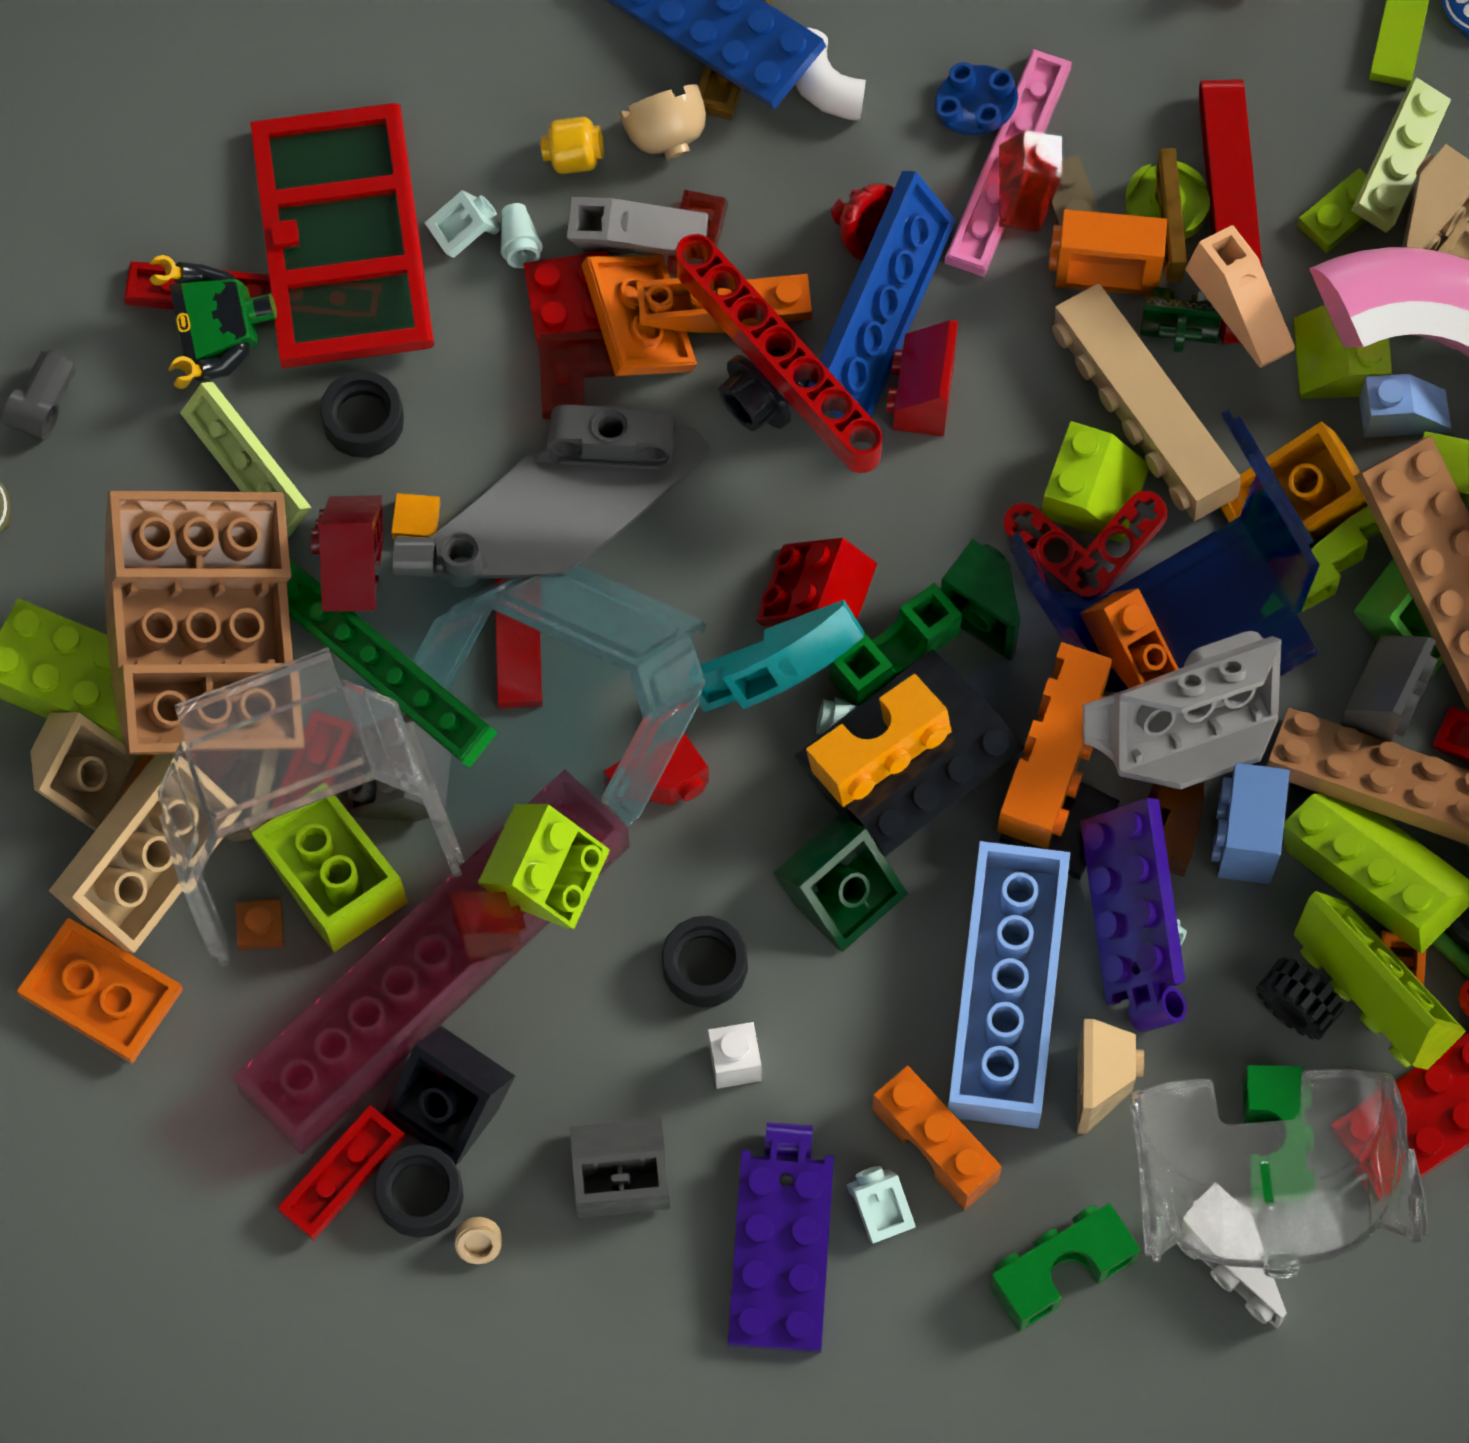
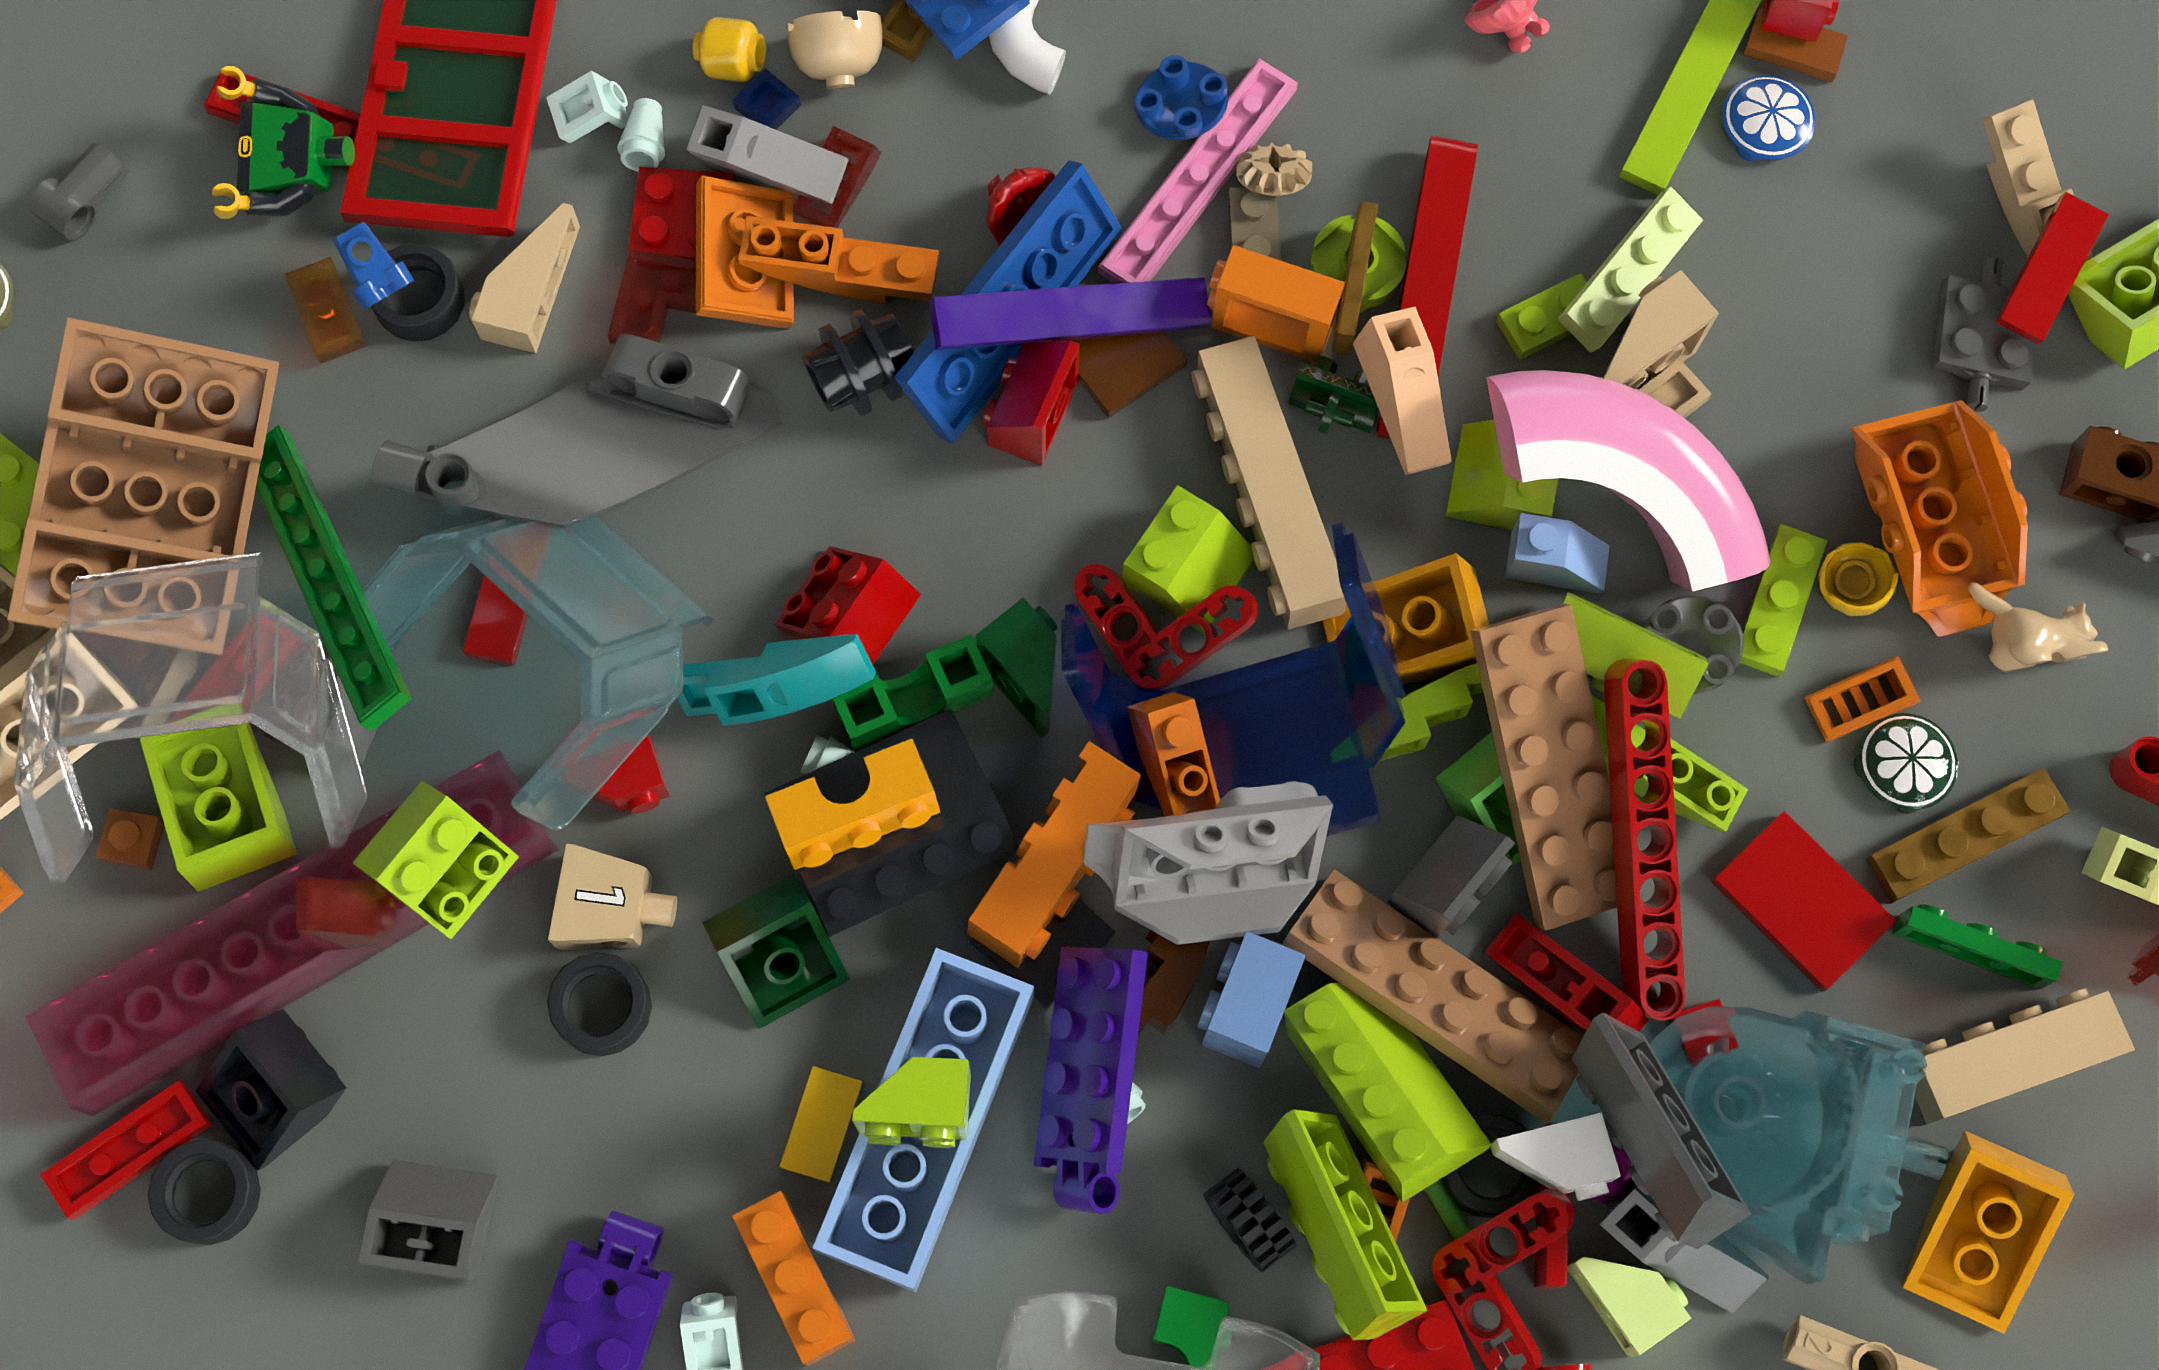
camera: 10 degrees right, 5 degrees up
(240, 450) = (274, 313): yellowish green plate -> none
(290, 446) = (325, 310): none -> clear orange plate
(334, 405) = (376, 276): none -> blue plate
(349, 548) = (336, 441): dark red wedge -> none
(415, 515) = (439, 419): light orange tile -> none
(454, 388) = (525, 284): none -> tan slope
(478, 1240) = (252, 1266): tan tile -> none
(617, 180) = (767, 100): none -> clear blue plate
(685, 877) = (605, 902): none -> tan torso
(735, 1055) = (597, 1124): white brick -> none
(781, 371) = (866, 355): red beam -> none
(919, 1015) = (821, 1125): none -> yellow tile
(939, 298) = (1069, 313): none -> dark purple tile
(990, 324) = (1126, 367): none -> reddish brown tile
(1010, 958) = (919, 1100): none -> lime slope
(1028, 179) = (1210, 201): clear red slope -> none
(1090, 135) = (1257, 172): none -> tan gear
(1104, 1071) = (1004, 1250): tan slope -> none

